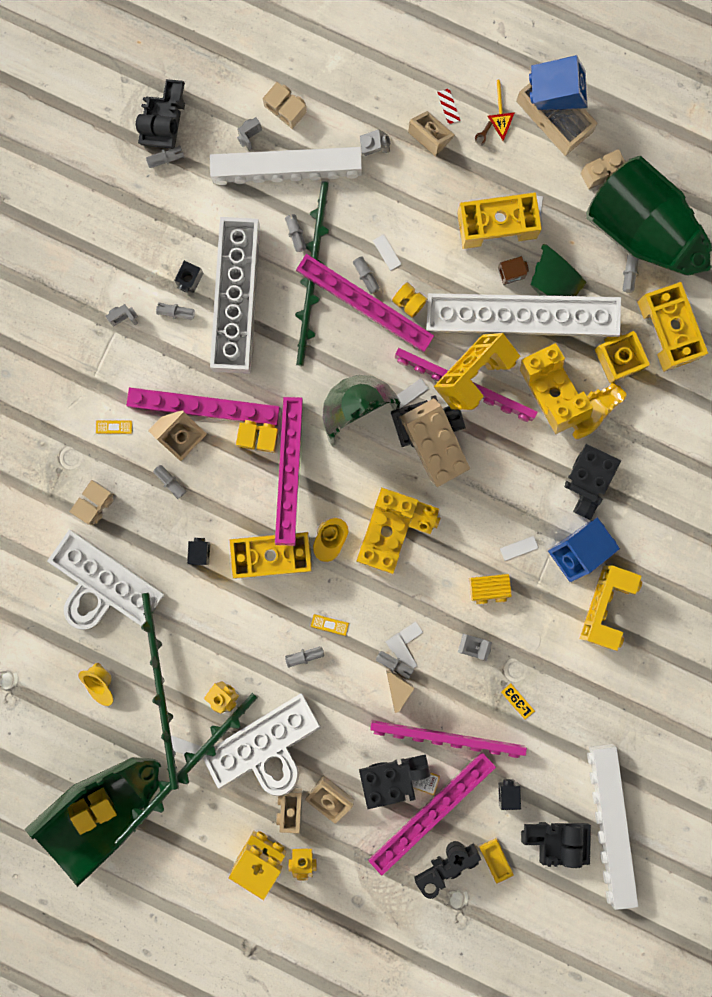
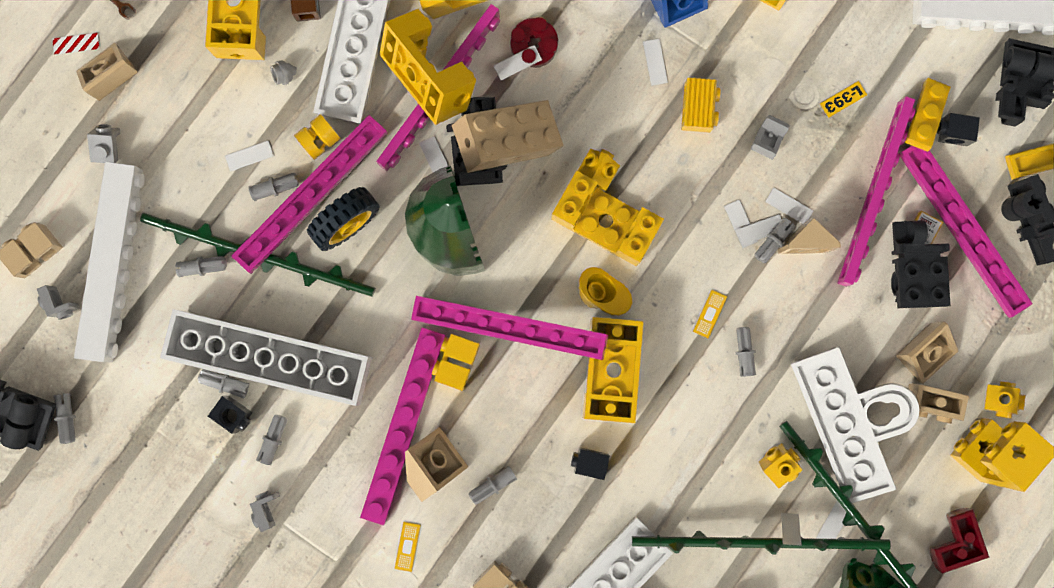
camera: 80 degrees left, 0 degrees up
(174, 713) = (791, 529): none -> white sticker
(186, 853) = (967, 543): none -> dark red brick
(210, 268) = (223, 383): none -> light grey axle
(348, 331) = (343, 218): none -> black wheel
(425, 672) = (789, 206): none -> white sticker
(455, 264) = (282, 72): none -> light grey plate
(496, 441) = (514, 64): none -> white sticker
(516, 440) = (539, 29): none -> dark red plate
(516, 769) = (927, 114): none -> yellow plate

